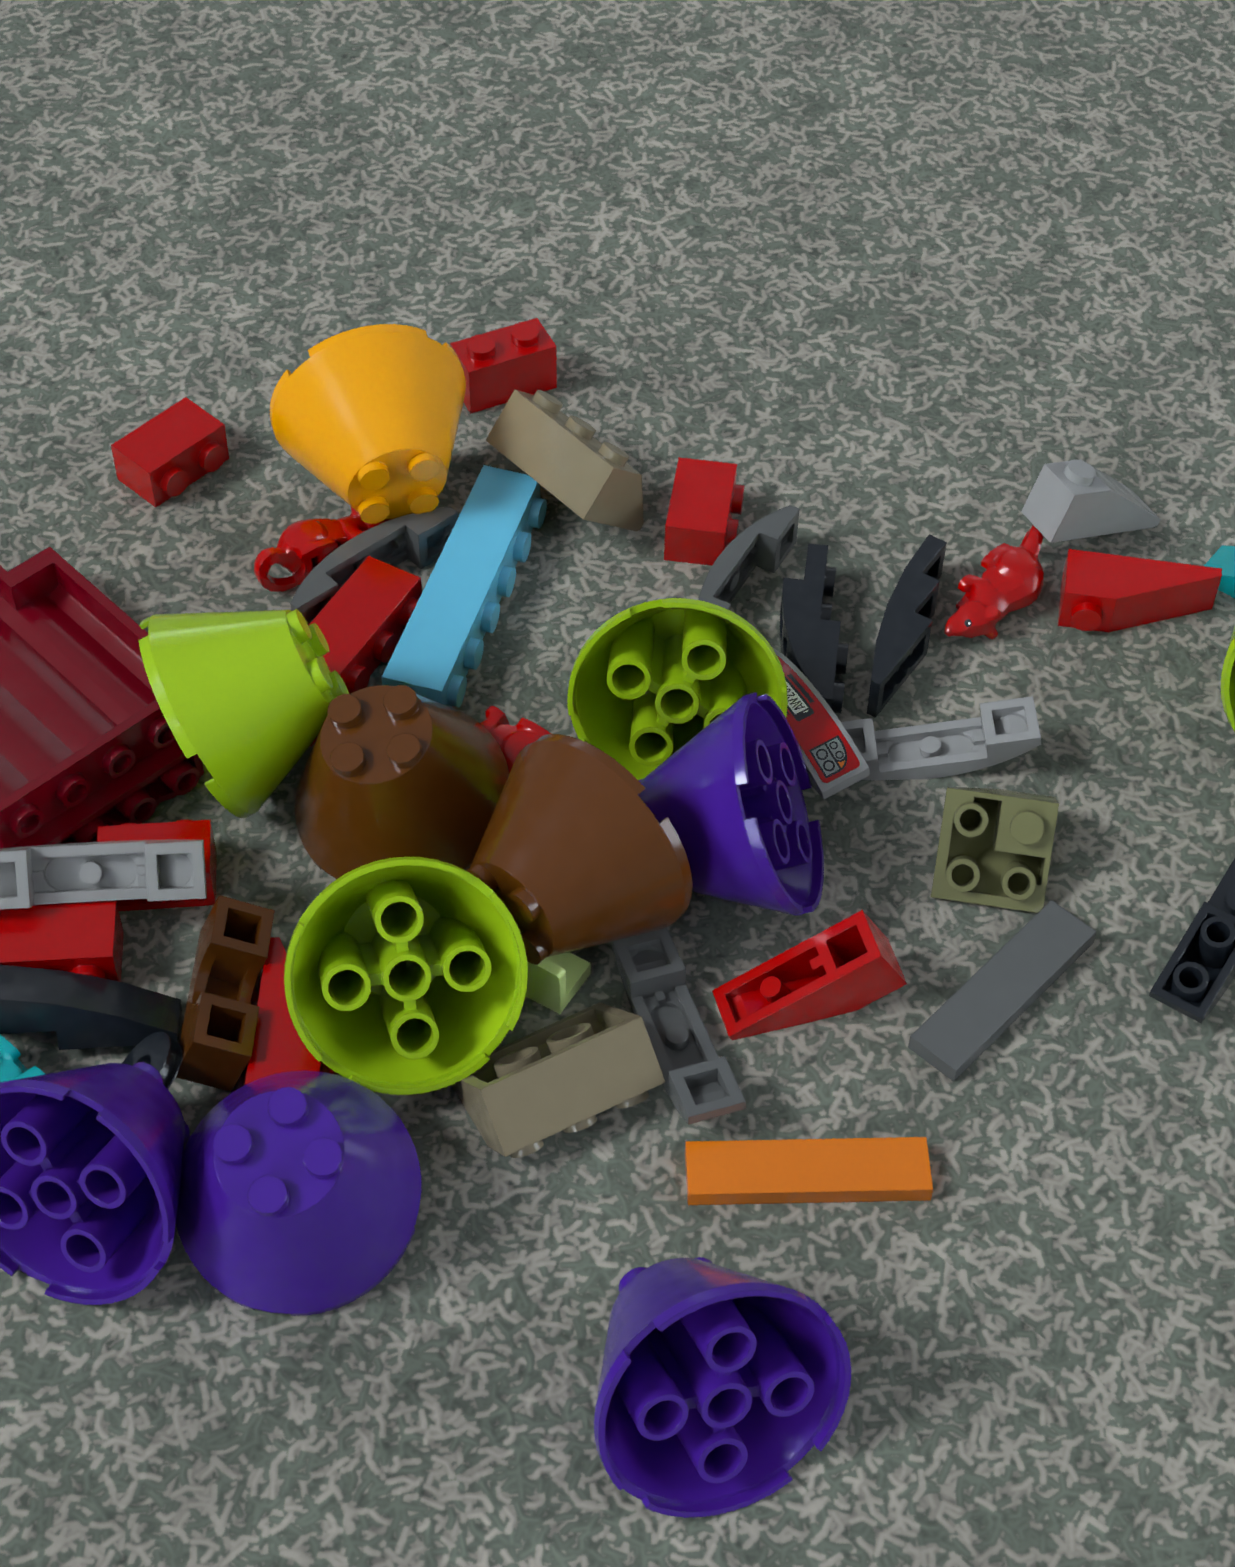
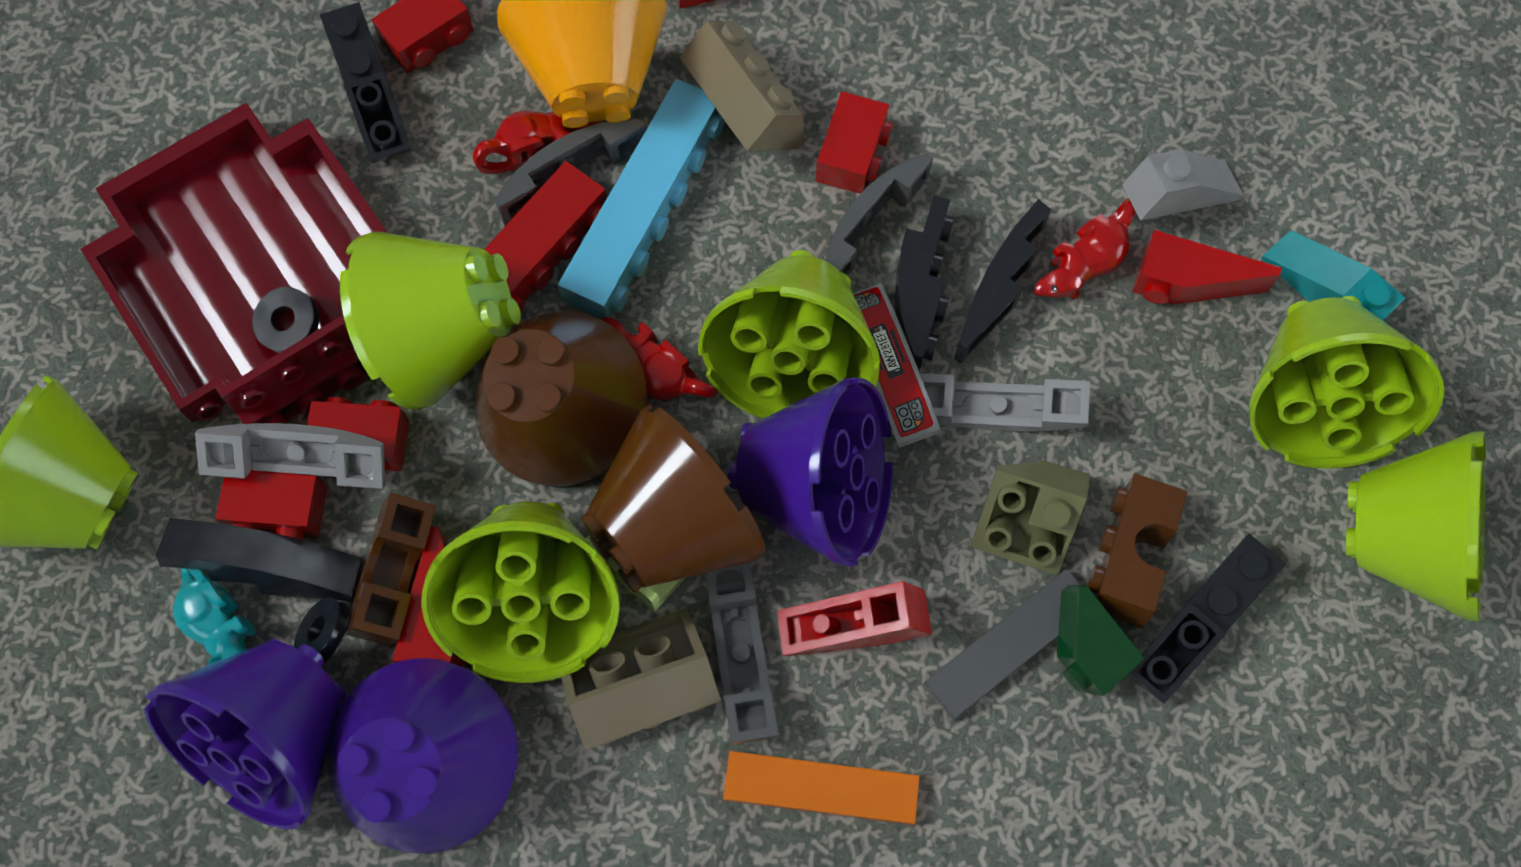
camera: 10 degrees right, 20 degrees up
(36, 737) = (271, 307): none -> black piece
(110, 512) = (366, 82): none -> black slope
(1100, 962) = (1092, 643): none -> dark green slope
(1126, 861) = (1144, 514): none -> reddish brown arch

